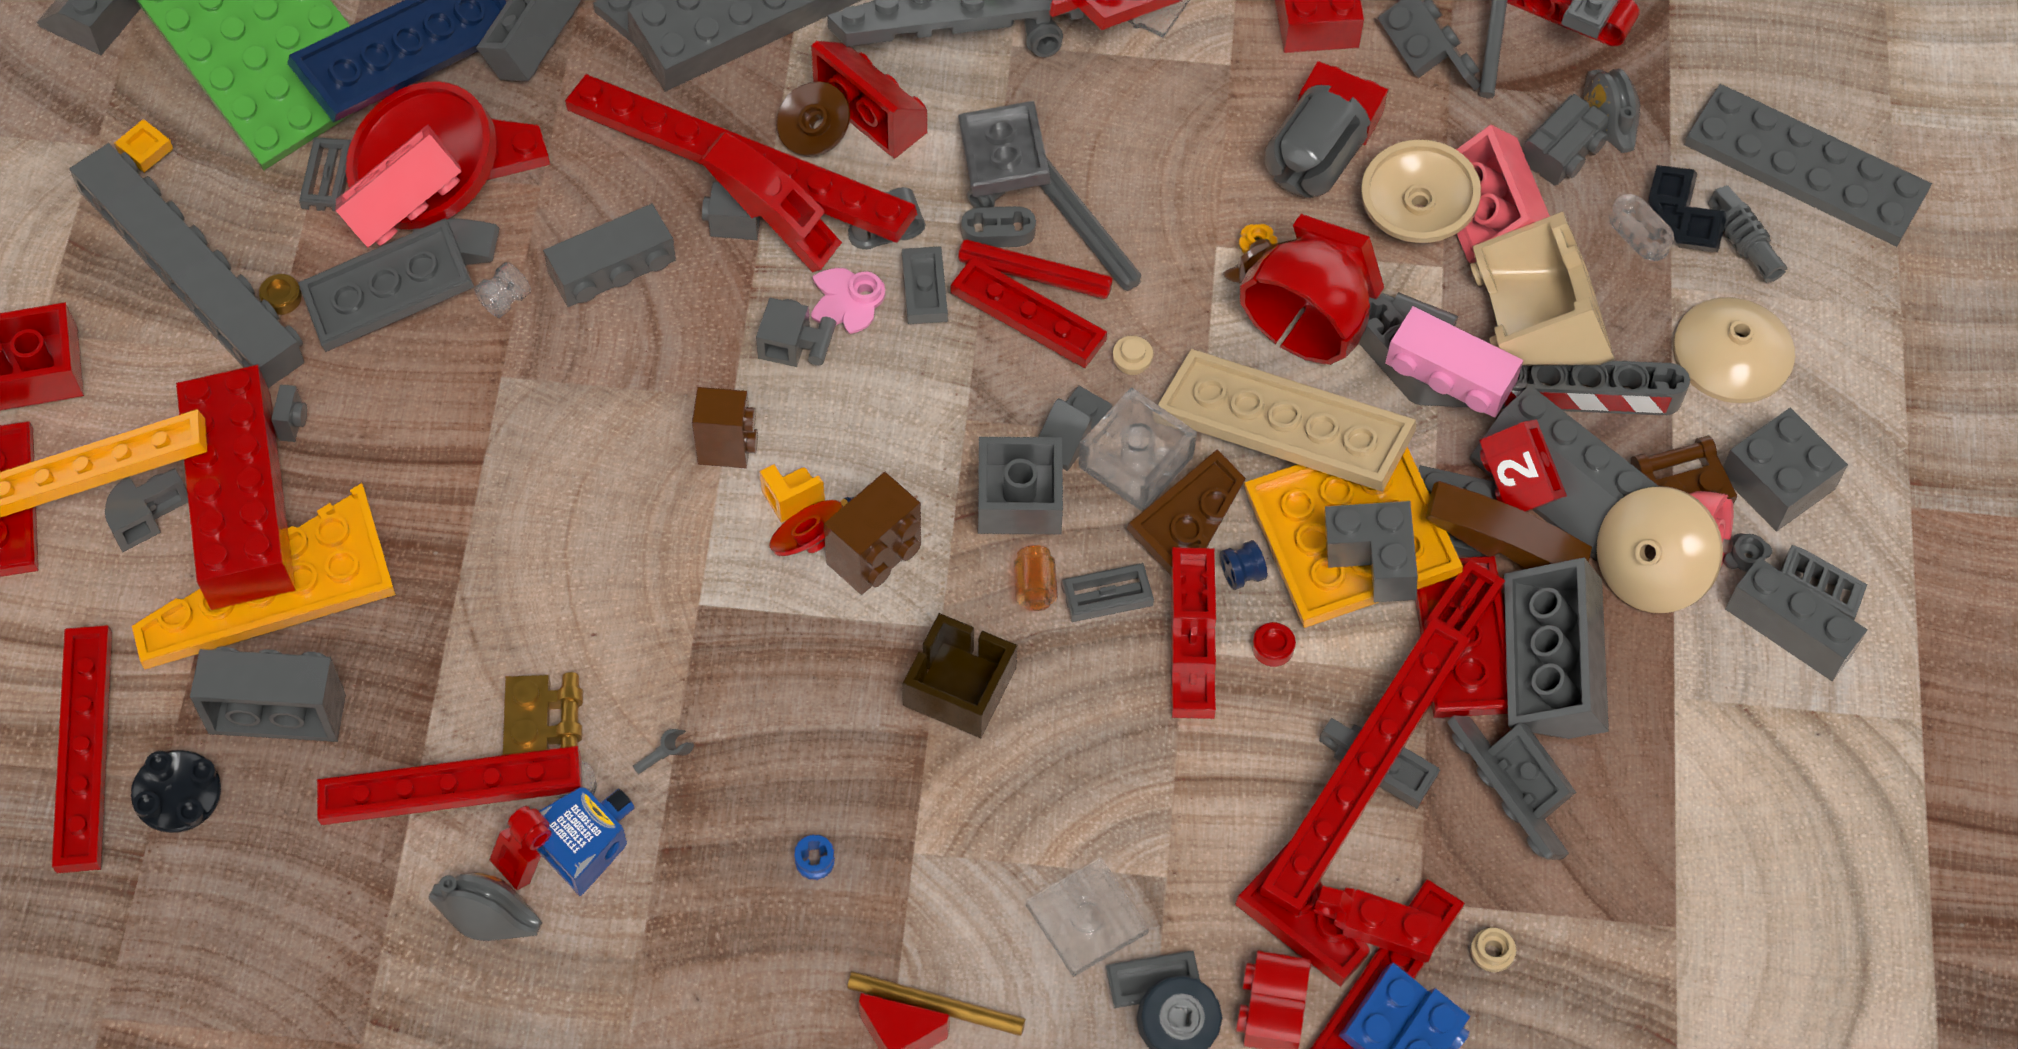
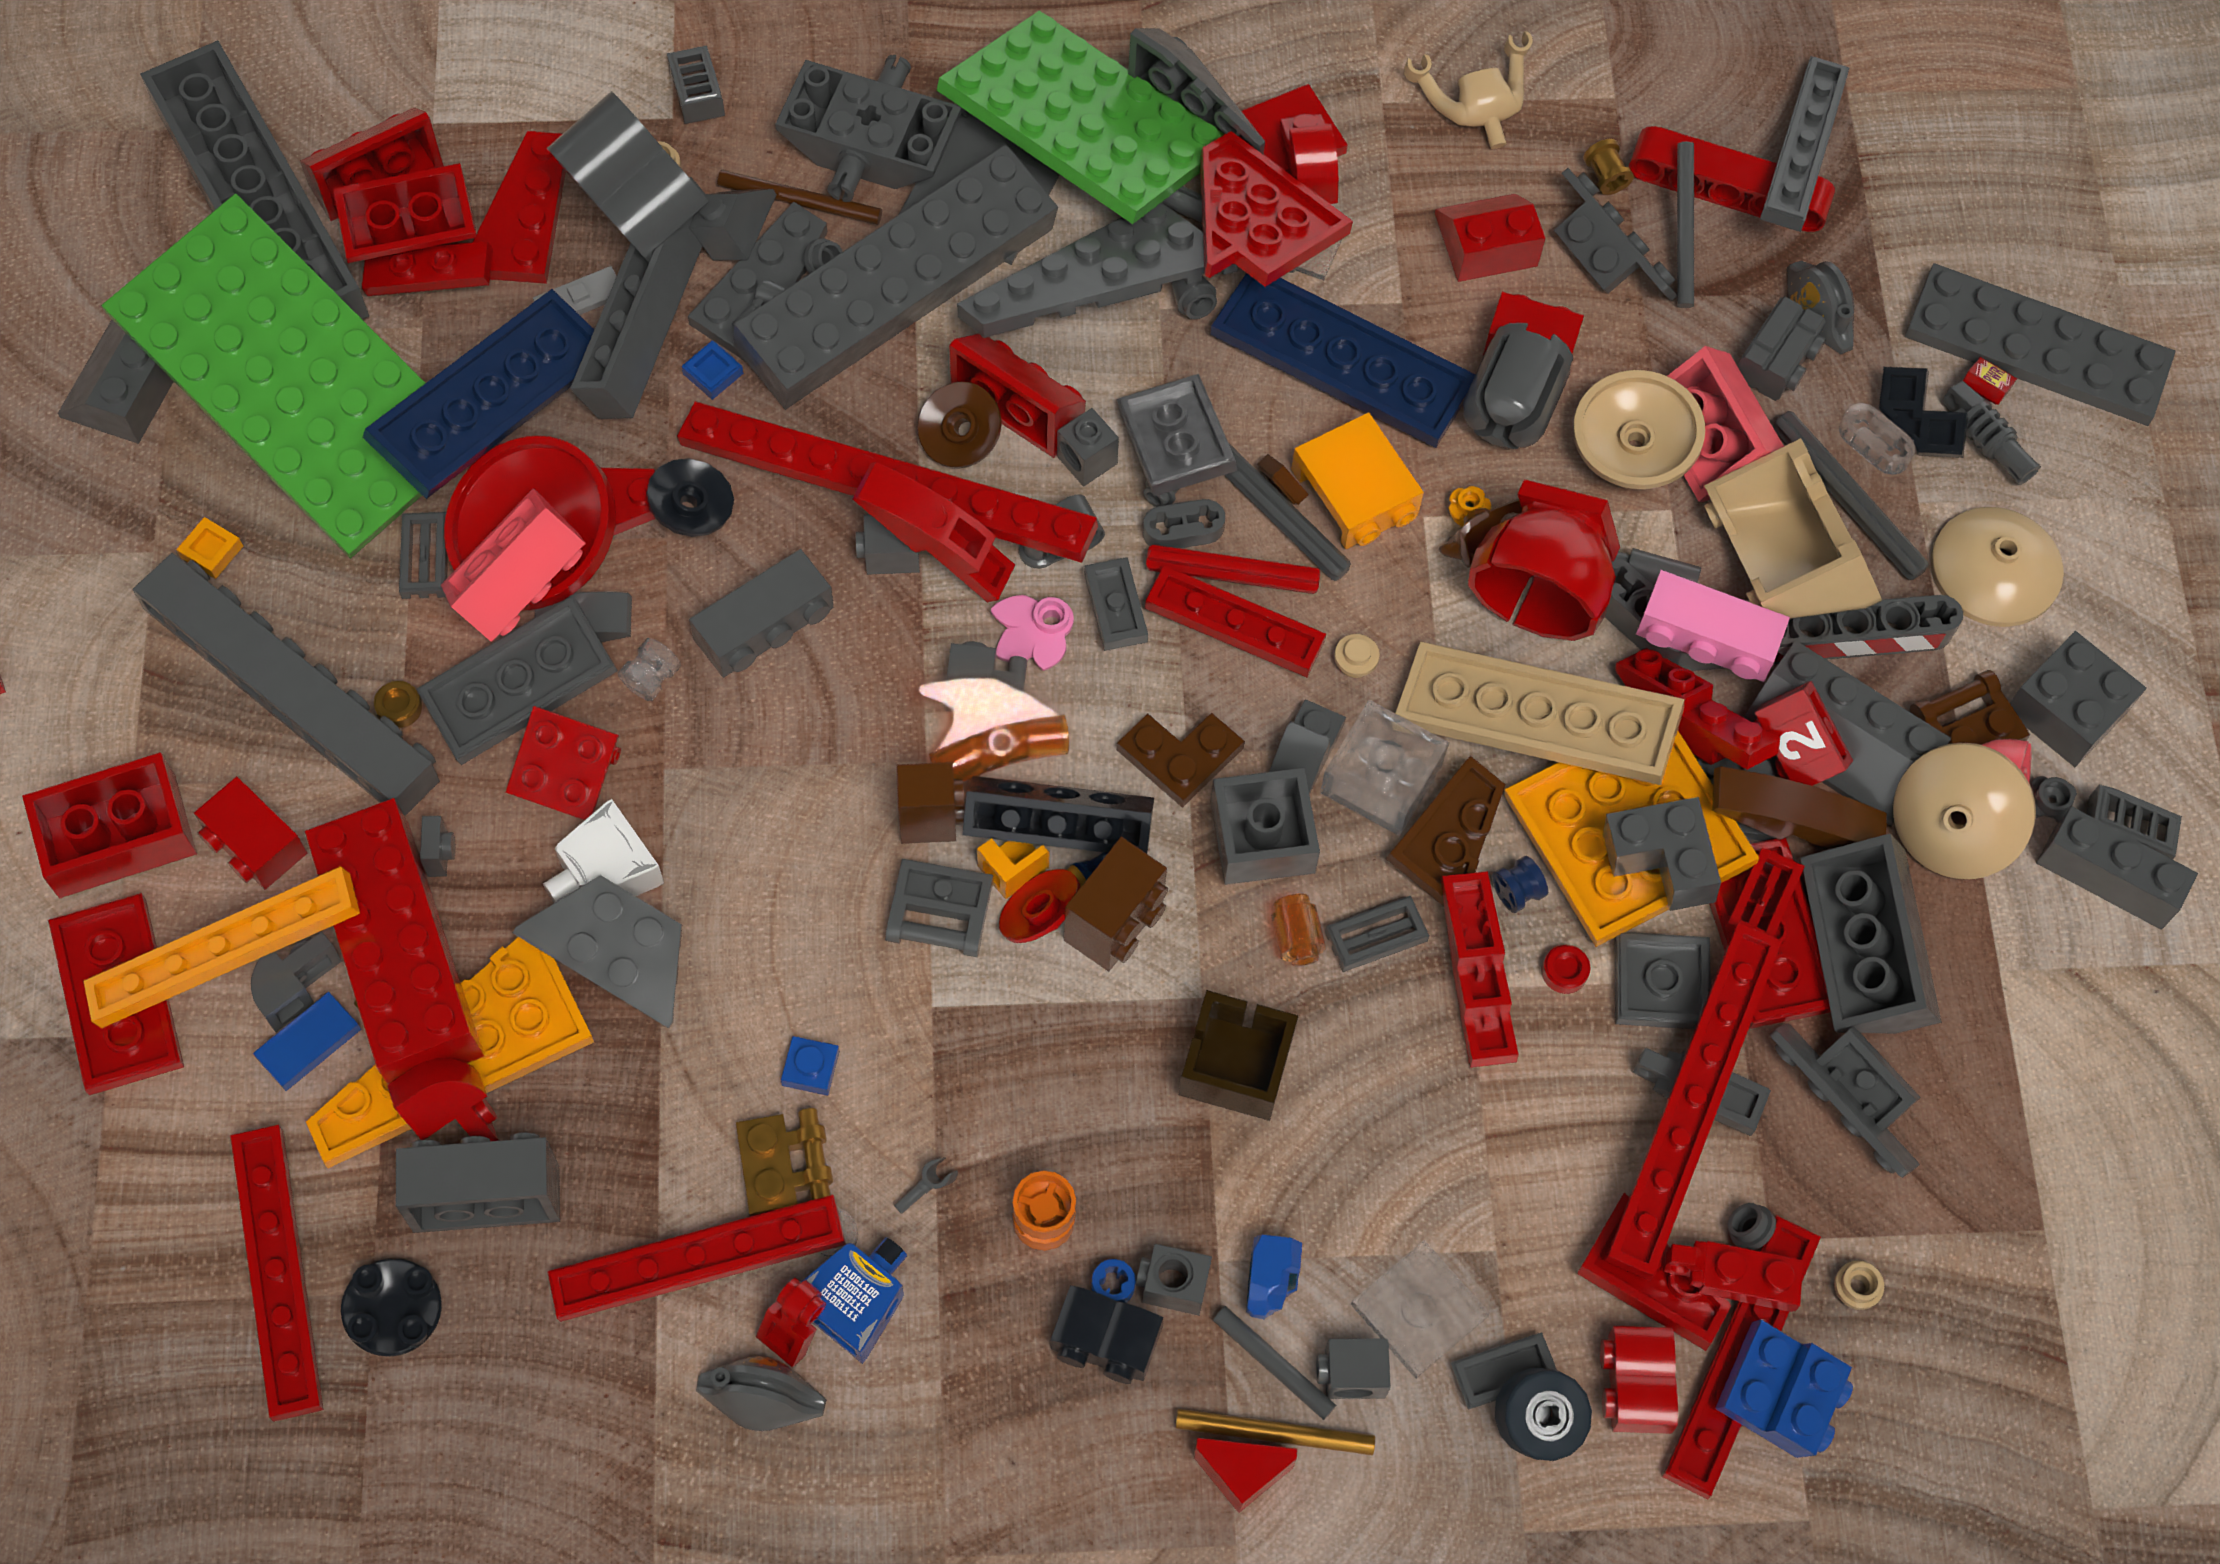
camera: 10 degrees left, 5 degrees up
(130, 382) = (250, 833): none -> red brick
(147, 562) = (307, 1041): none -> blue tile
(248, 612) = (438, 1094): none -> red brick
(412, 358) = (562, 763): none -> red hinge
(425, 511) = (613, 944): none -> dark grey wing
(431, 445) = (607, 848): none -> white torso
(566, 140) = (692, 483): none -> black dish
(581, 639) = (810, 1065): none -> blue plate
(606, 50) = (712, 369): none -> blue tile
(723, 508) = (942, 893): none -> dark grey plate
(762, 784) = (1044, 1210): none -> orange wheel
(791, 355) = (988, 708): none -> clear orange pin
(799, 898) = (1106, 1334): none -> black brick
(834, 452) = (1055, 815): none -> black brick
(874, 876) = (1191, 1265): none -> dark grey brick
(923, 150) = (1087, 447): none -> dark grey brick
(947, 945) = (1274, 1363): none -> dark grey bar
(957, 866) = (1272, 1274): none -> blue rock
(958, 428) = (1183, 765): none -> reddish brown plate
(1016, 957) = (1355, 1368): none -> dark grey brick
(1094, 199) = (1283, 479): none -> reddish brown tile
(1161, 206) = (1359, 480): none -> light orange panel
(1167, 101) = (1345, 356): none -> dark blue plate
(1357, 663) = (1661, 979): none -> dark grey tile
(1402, 884) = (1751, 1226): none -> dark grey plate
(1434, 448) = (1705, 725): none -> red slope
(1611, 276) = (1854, 498): none -> dark grey axle
(1753, 189) = (1989, 381): none -> red tile

